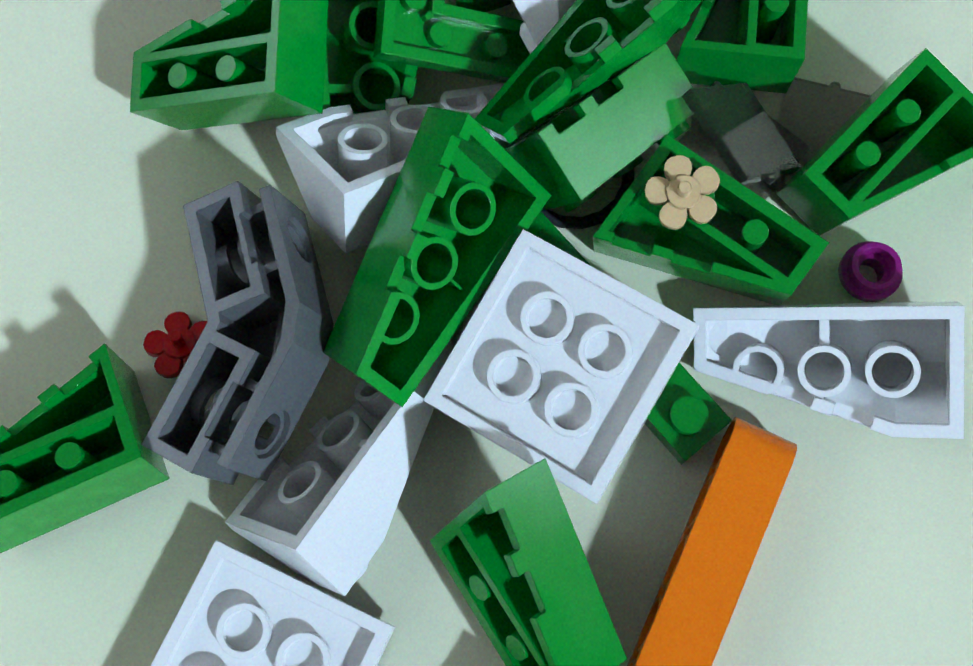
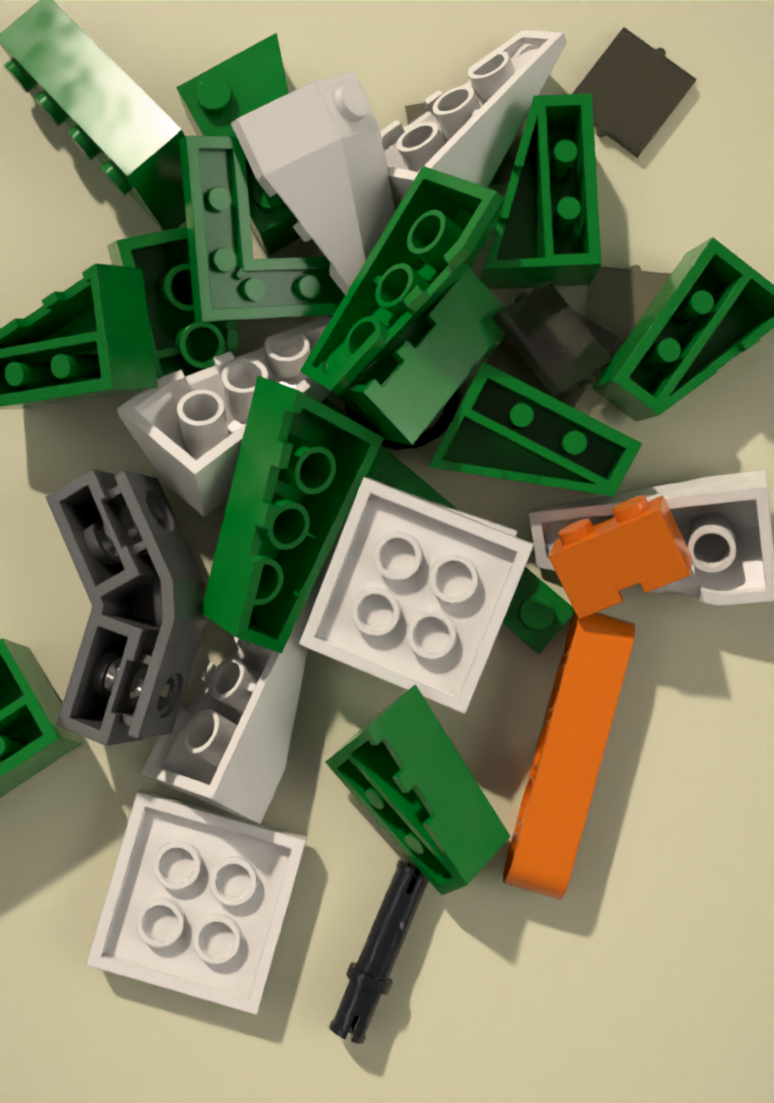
camera: 10 degrees left, 10 degrees up
(175, 346) = (66, 619): red plant -> none
(683, 193) = (504, 417): tan plant -> none
(772, 362) = (619, 552): none -> orange brick
(884, 262) = (697, 438): magenta plate -> none

